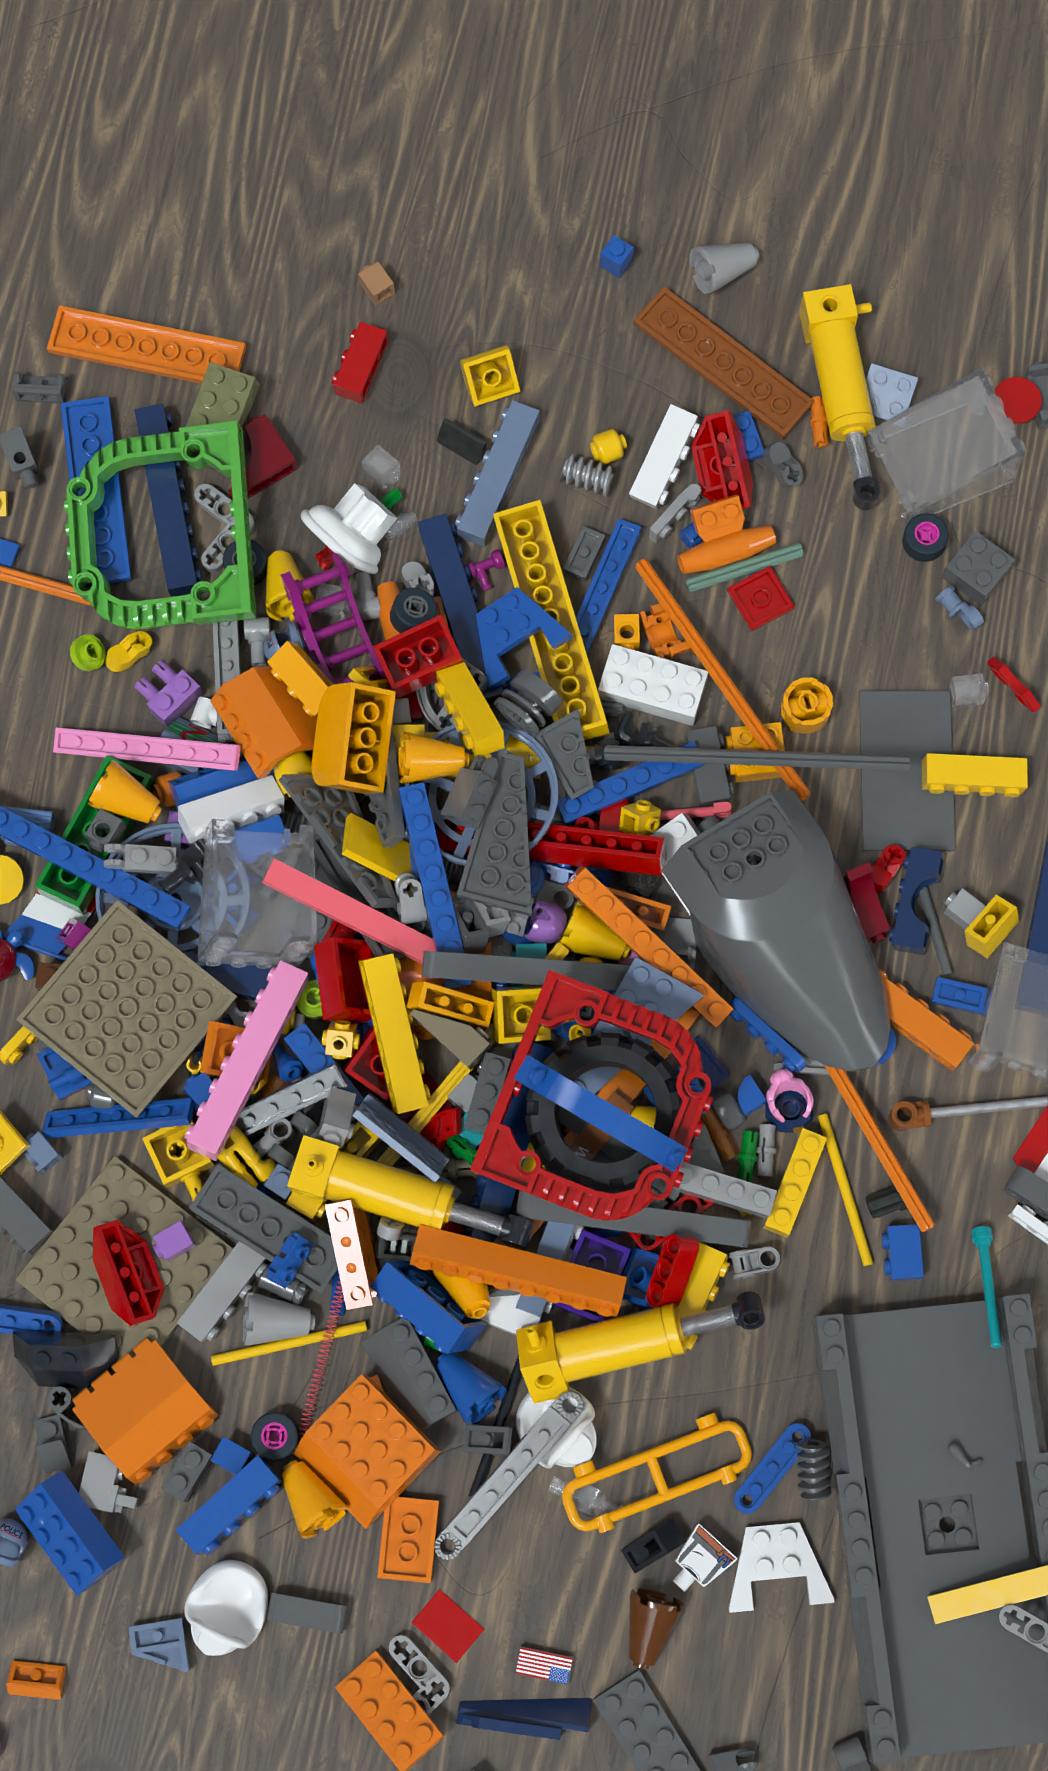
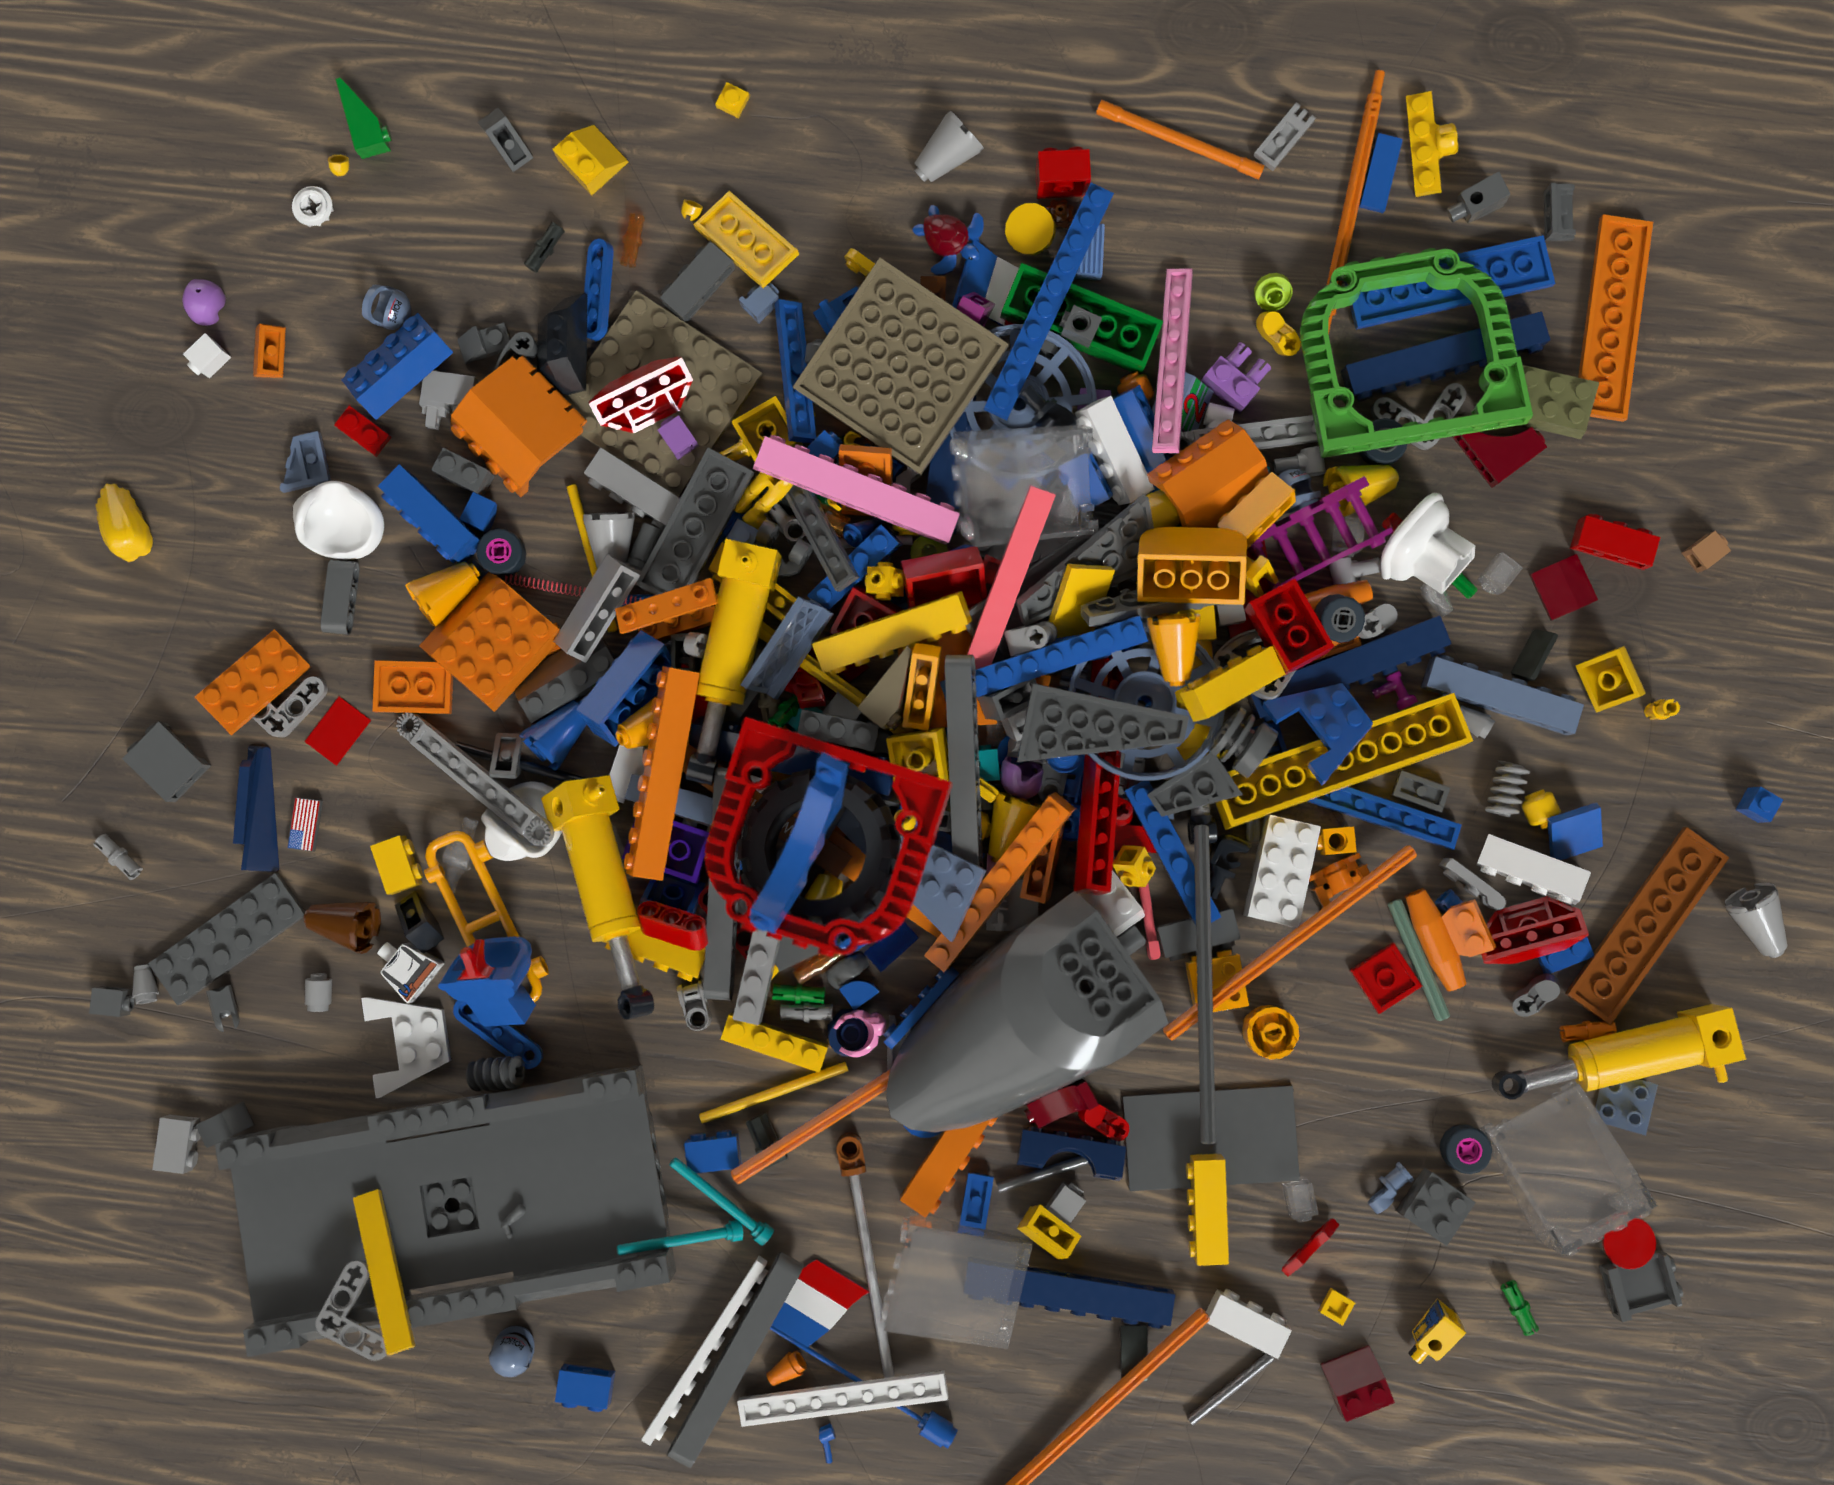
camera: 85 degrees right, 10 degrees up
(35, 1747) = (206, 356): none -> white brick
(124, 795) = (1118, 341): light orange cone -> none
(132, 1580) = (362, 431): none -> red plate
(142, 858) = (1054, 366): light grey hinge -> none
(283, 1270) = (653, 545): blue hinge -> none
(336, 1117) = (801, 582): light grey brick -> none
(343, 1333) = (596, 608): none -> light grey brick
(399, 411) = (1563, 587): none -> dark red slope
(471, 793) = (1141, 691): dark grey hinge -> none
(522, 332) = (1662, 709): none -> yellow pin
(522, 495) = (1477, 722): none -> light grey cone
(593, 1565) = (397, 864): none -> yellow brick
(631, 417) = (1575, 832): none -> blue tile
(717, 1461) = (490, 980): none -> blue piece
(721, 1658) = (318, 992): none -> light grey brick
(983, 1210) = (760, 1231): none -> teal piece

